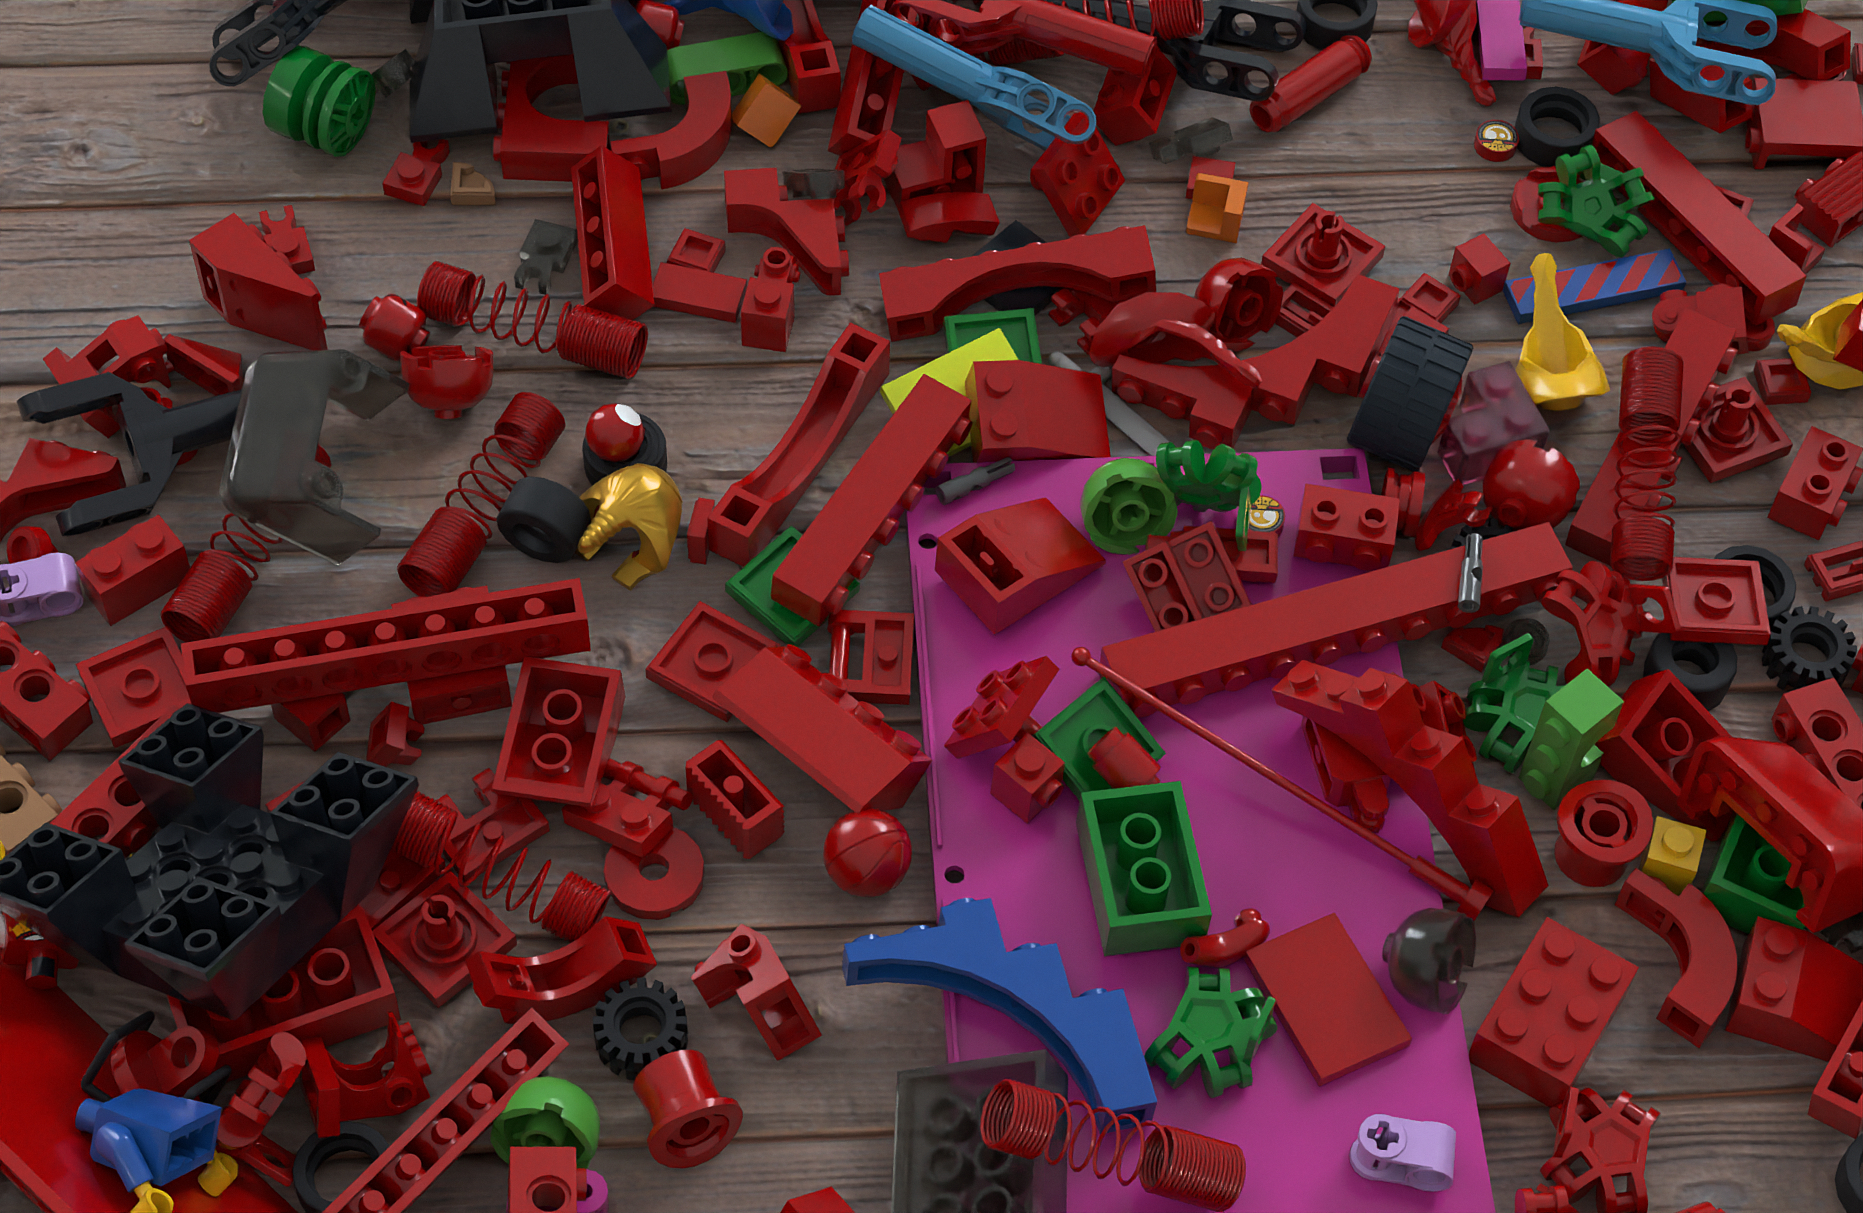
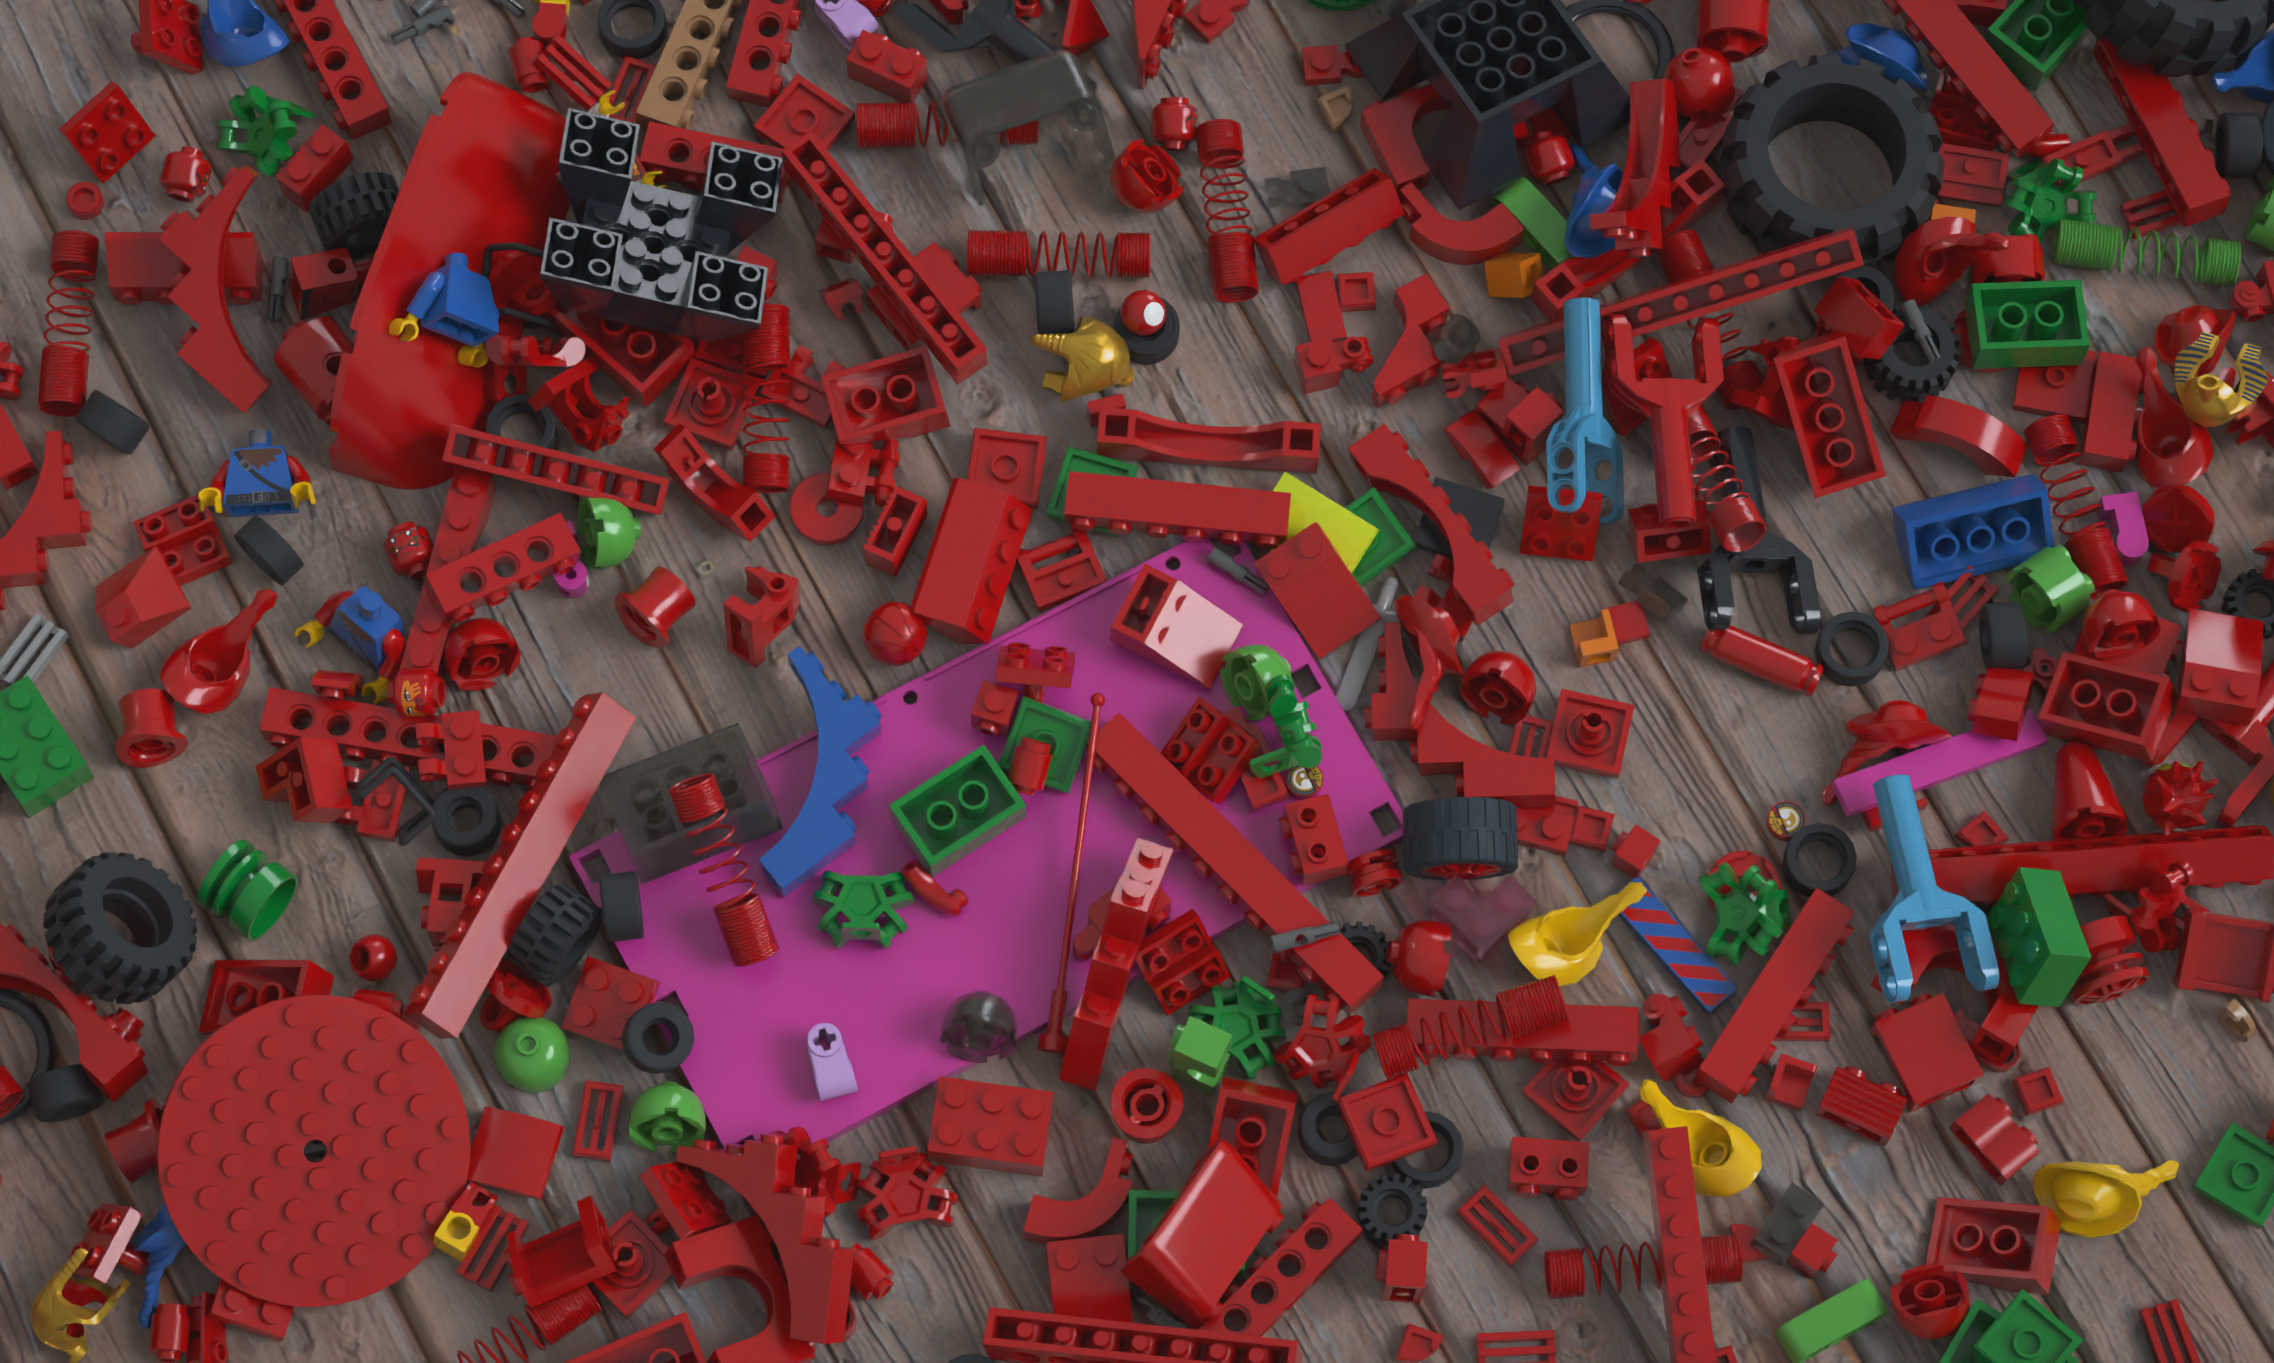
camera: 65 degrees right, 15 degrees up
(635, 1002) = (704, 576): black tyre -> none
(1327, 999) = (926, 973): red tile -> none
(1449, 510) = (1384, 911): red piece -> none
(1673, 853) = (1156, 1165): yellow brick -> none

